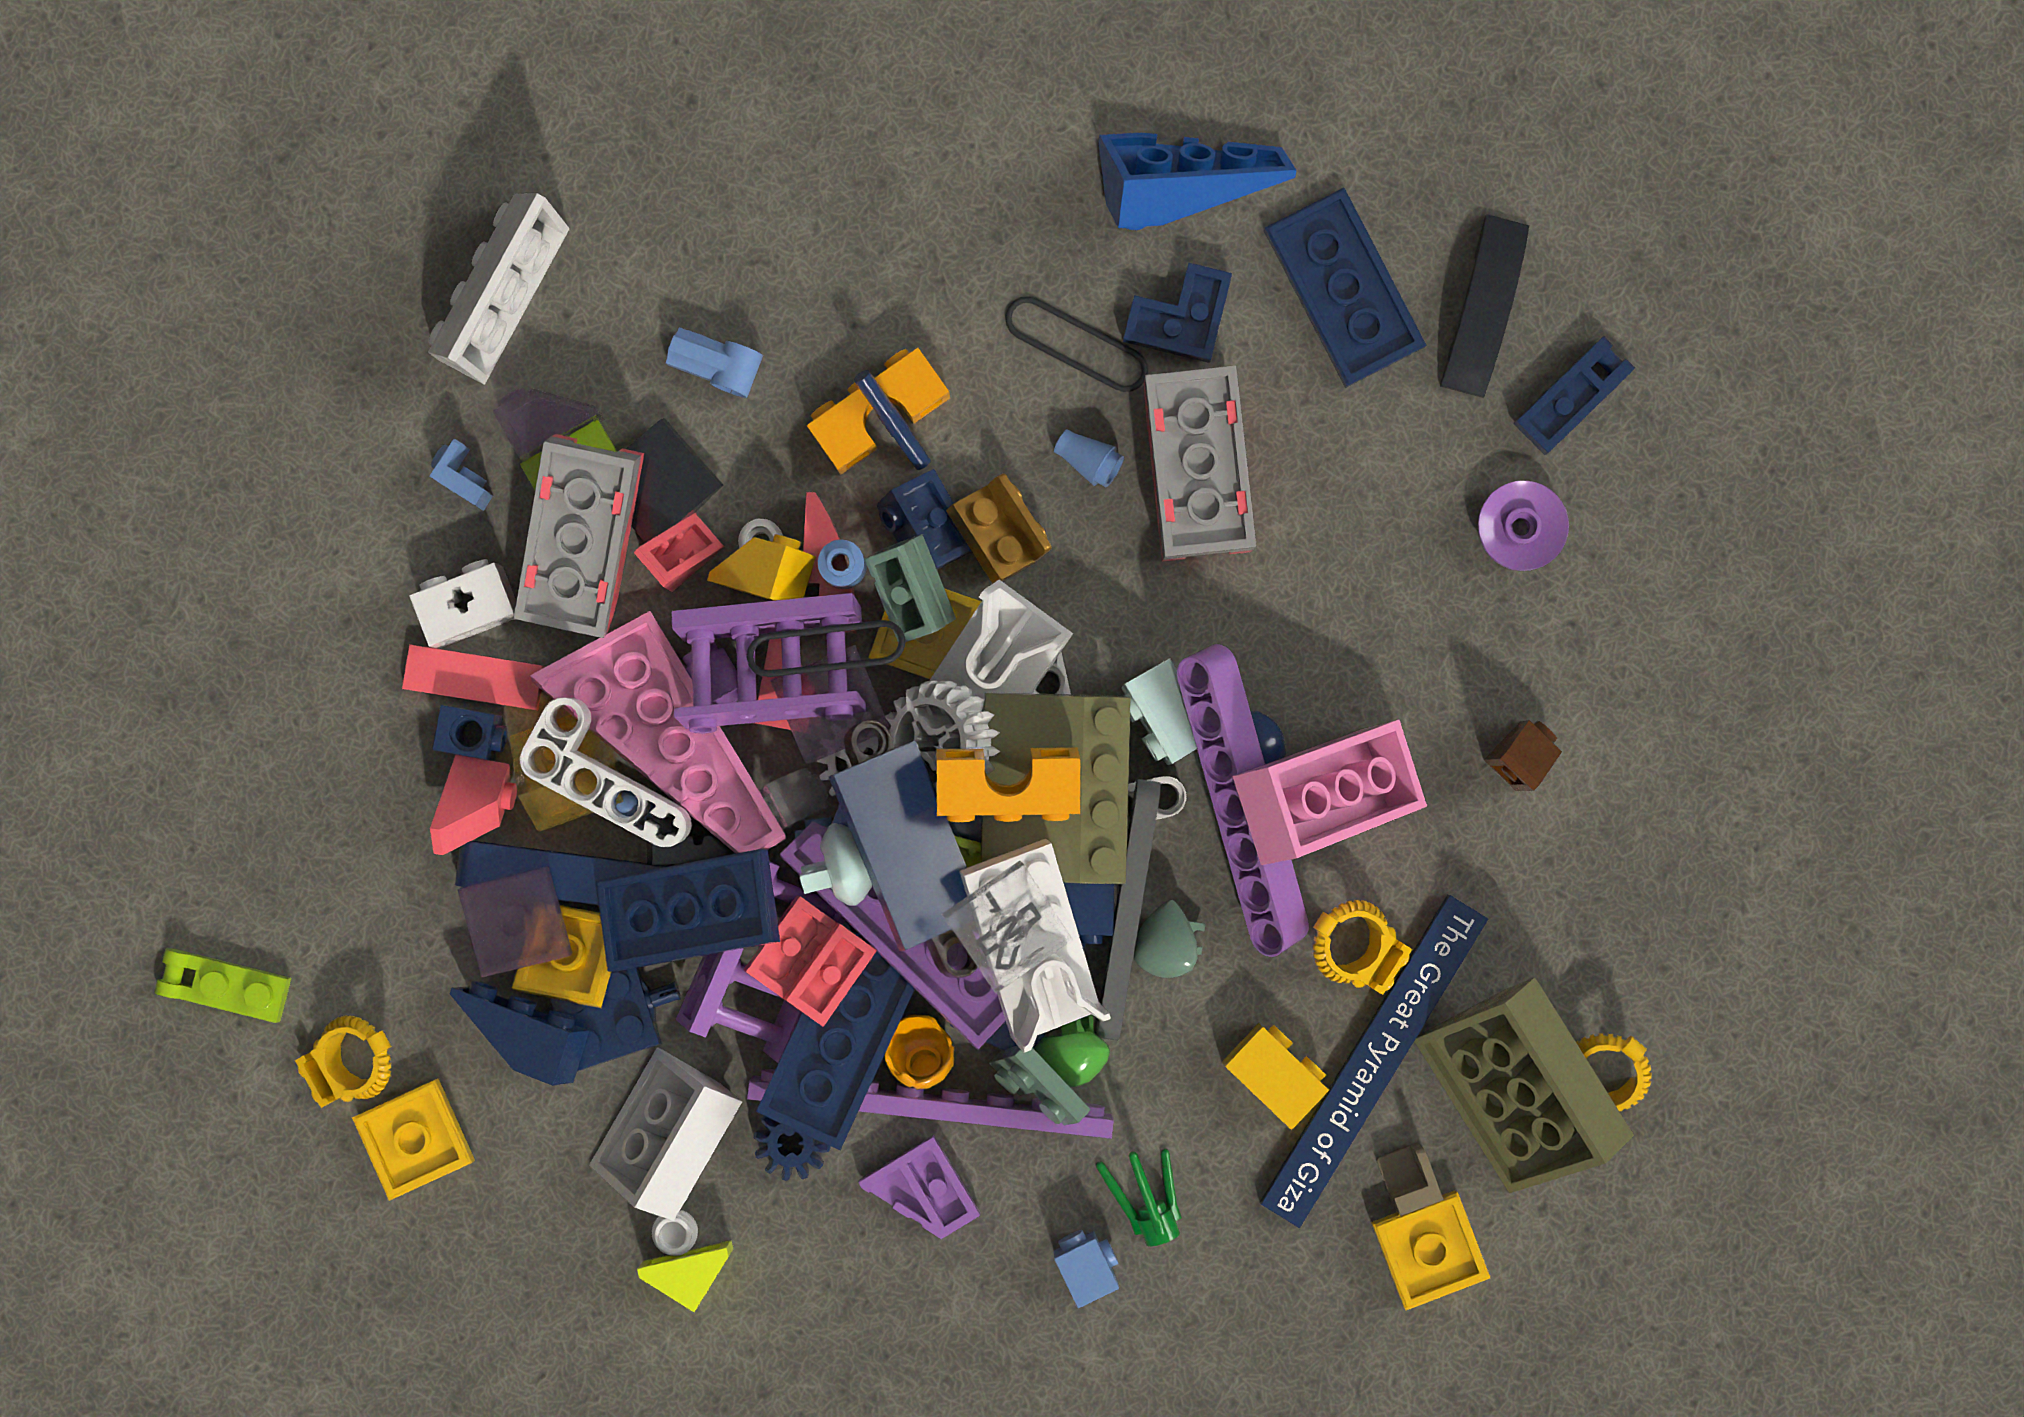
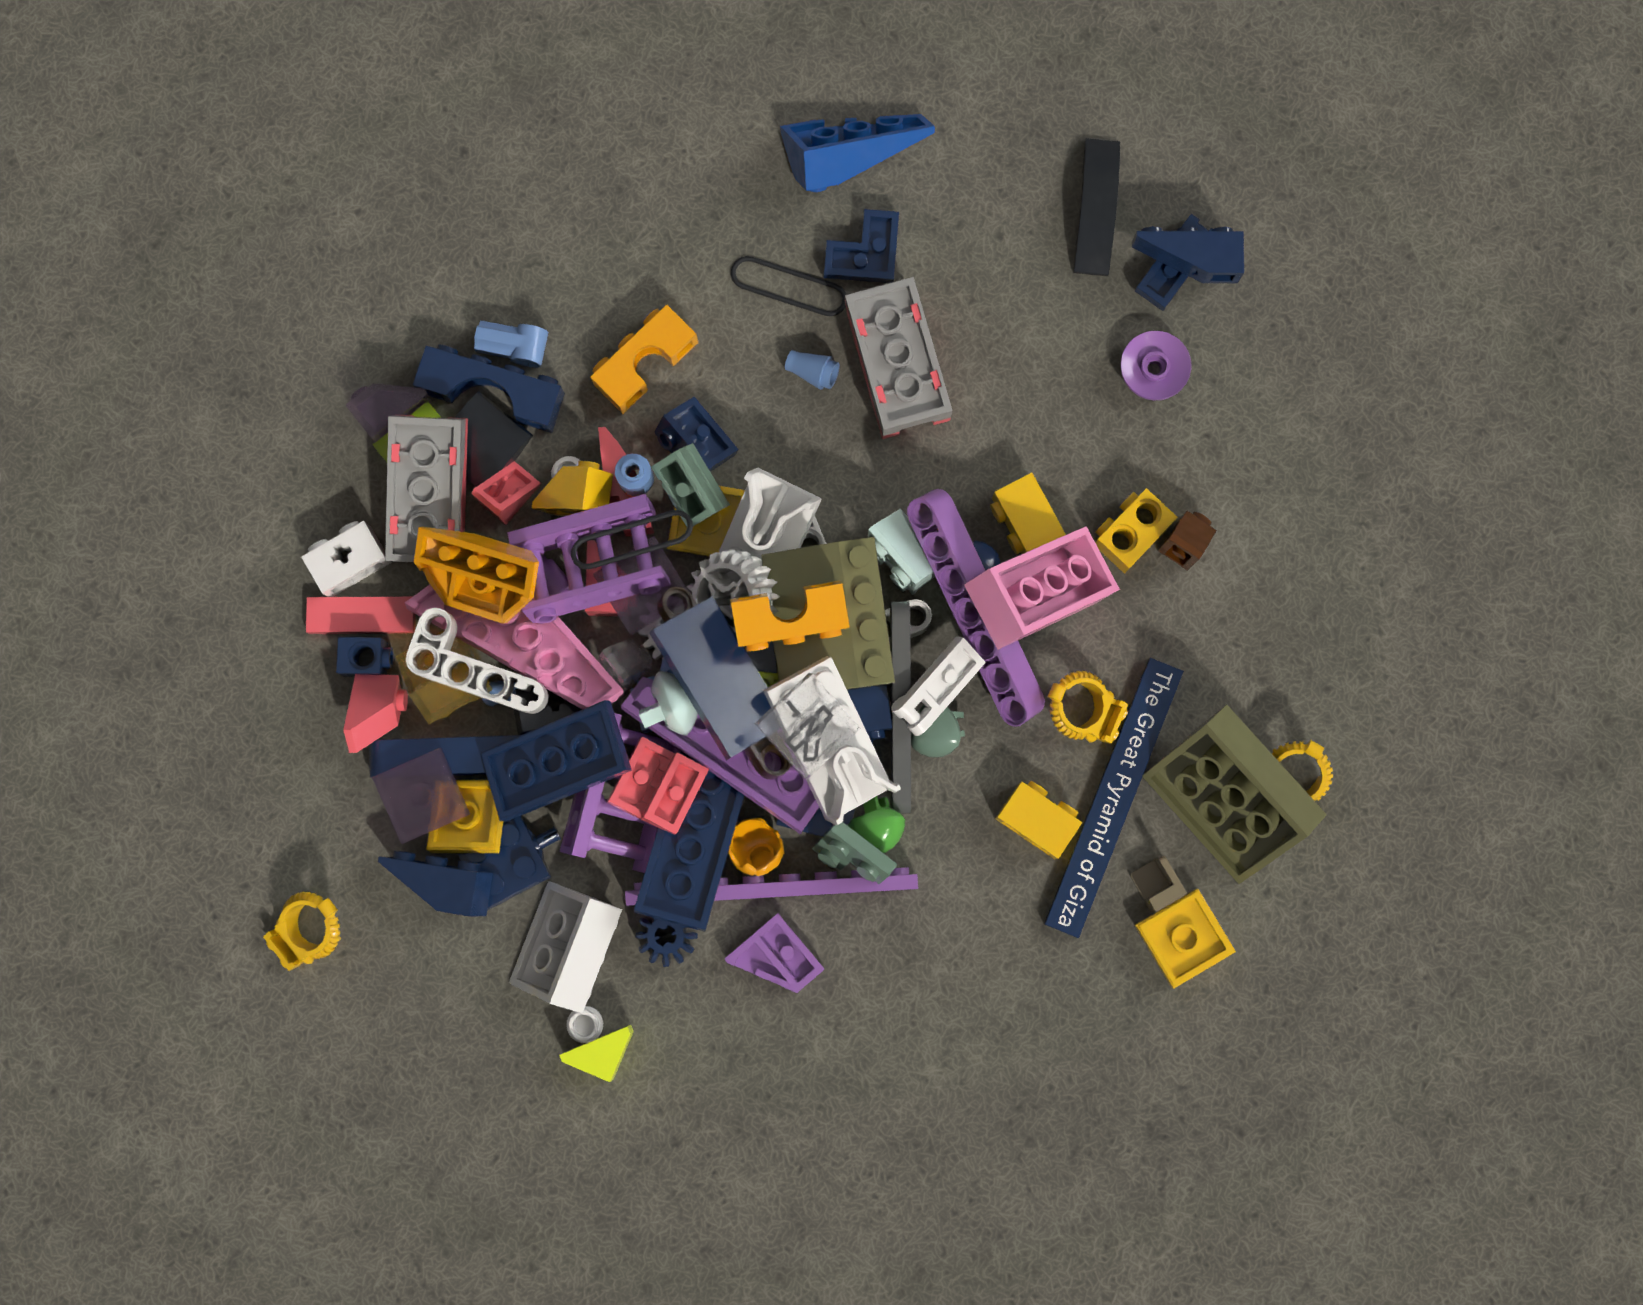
camera: 10 degrees left, 5 degrees down
(224, 985) = (199, 888): lime plate -> none
(413, 1139) = (366, 984): yellow plate -> none
(466, 482) = (330, 466): medium blue bracket -> none
(499, 286) = (337, 310): white slope -> none
(627, 391) = (448, 375): none -> dark blue arch
(627, 656) = (477, 572): none -> light orange wedge
(892, 419) = (655, 362): dark blue piece -> none
(1000, 529) = (753, 432): pearl gold bracket -> none
(1086, 1266) = (916, 995): medium blue brick -> none
(1156, 1220) = (964, 951): green plant -> none
(1179, 894) = (938, 685): none -> white plate
(1327, 692) = (1026, 515): none -> yellow brick
(1344, 287) = (987, 210): dark blue tile -> none
(1464, 741) = (1140, 535): none -> yellow brick
(1606, 396) = (1202, 255): none -> dark blue slope

